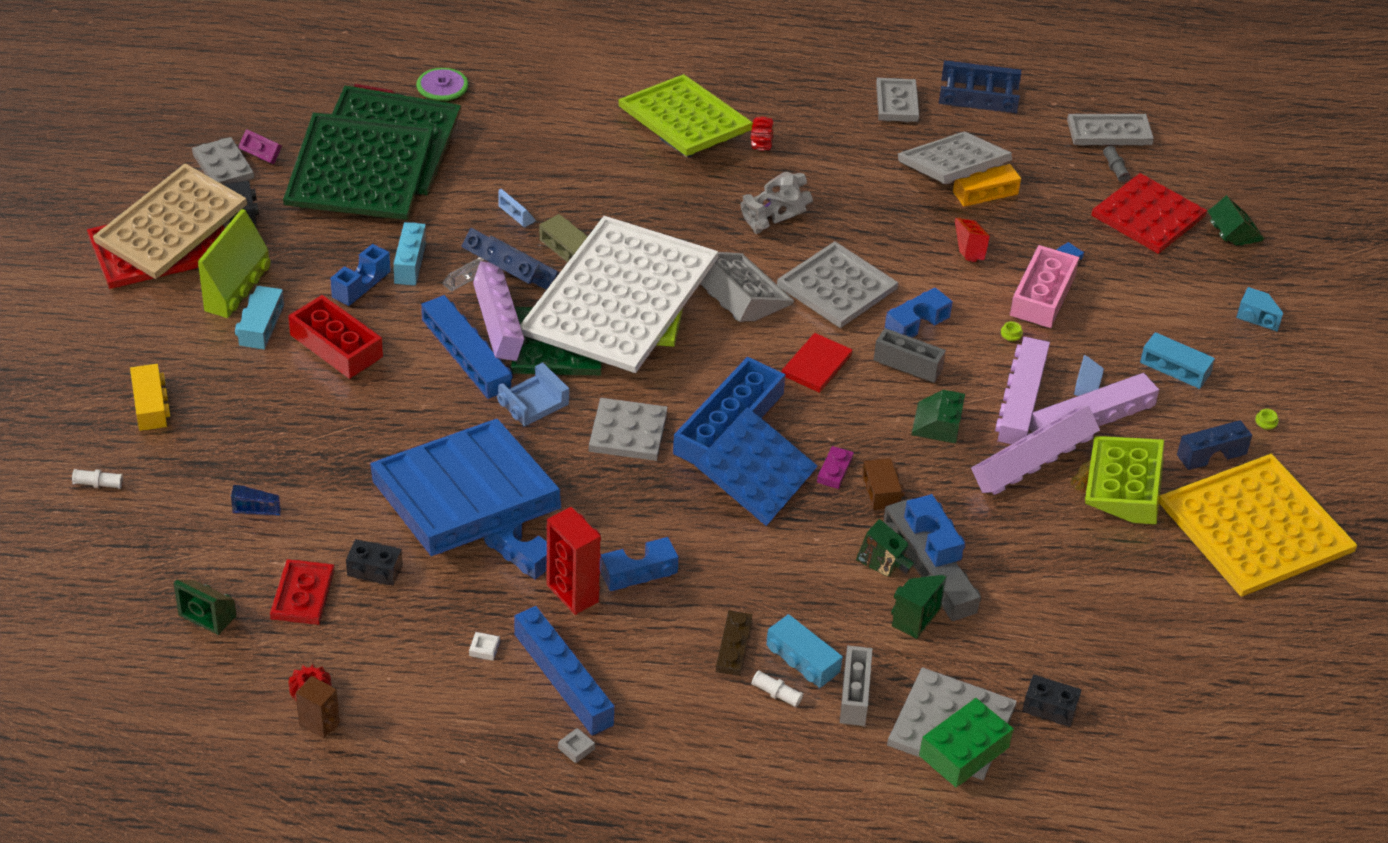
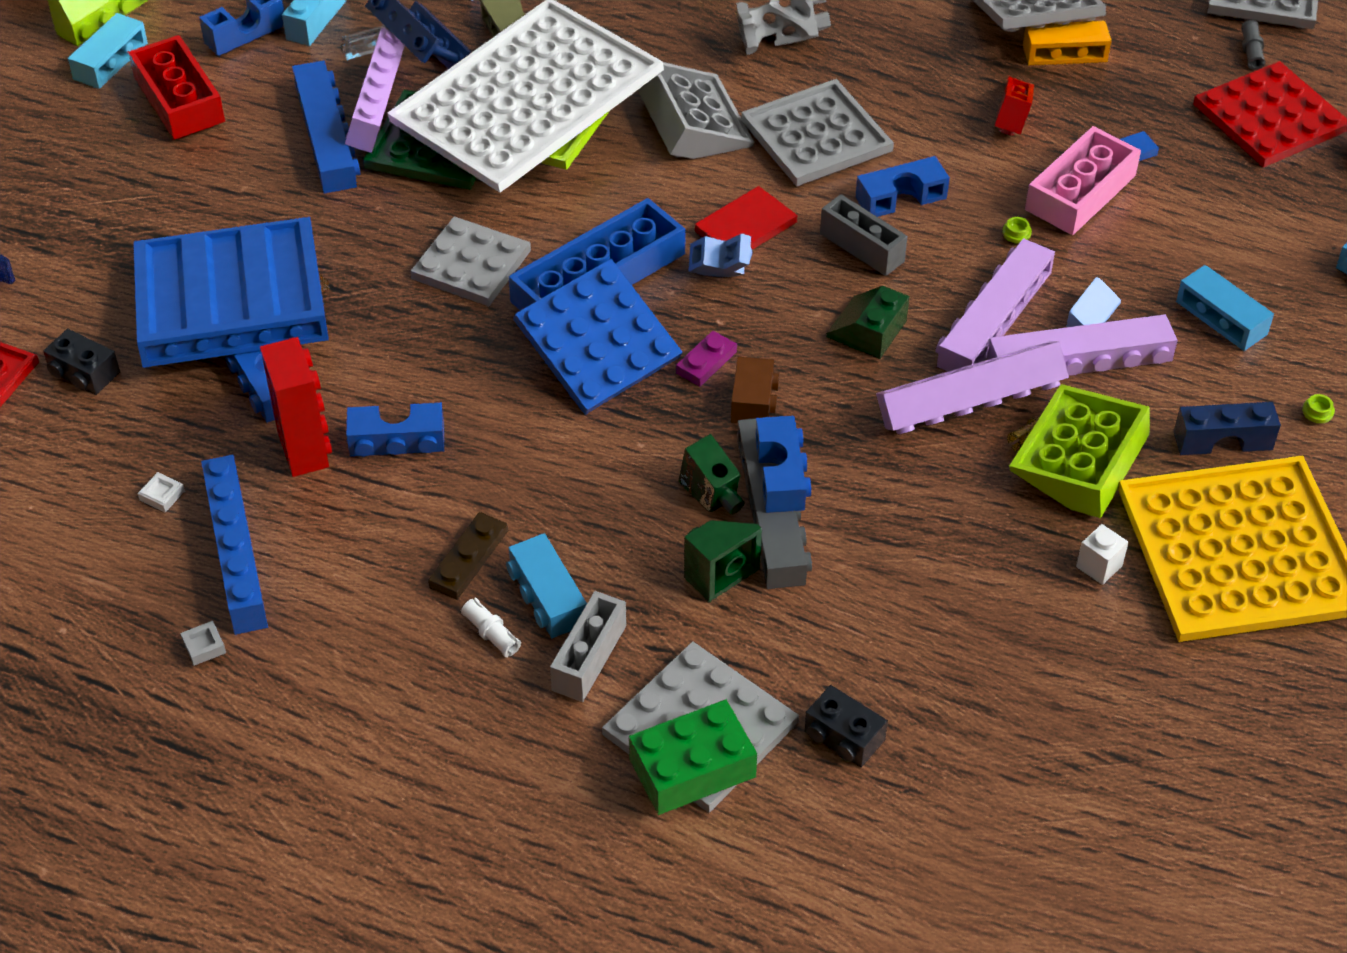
camera: 20 degrees right, 5 degrees up
(535, 396) = (375, 201): medium blue panel -> none
(816, 391) = (720, 257): none -> medium blue brick
(1169, 548) = (1102, 554): none -> white brick

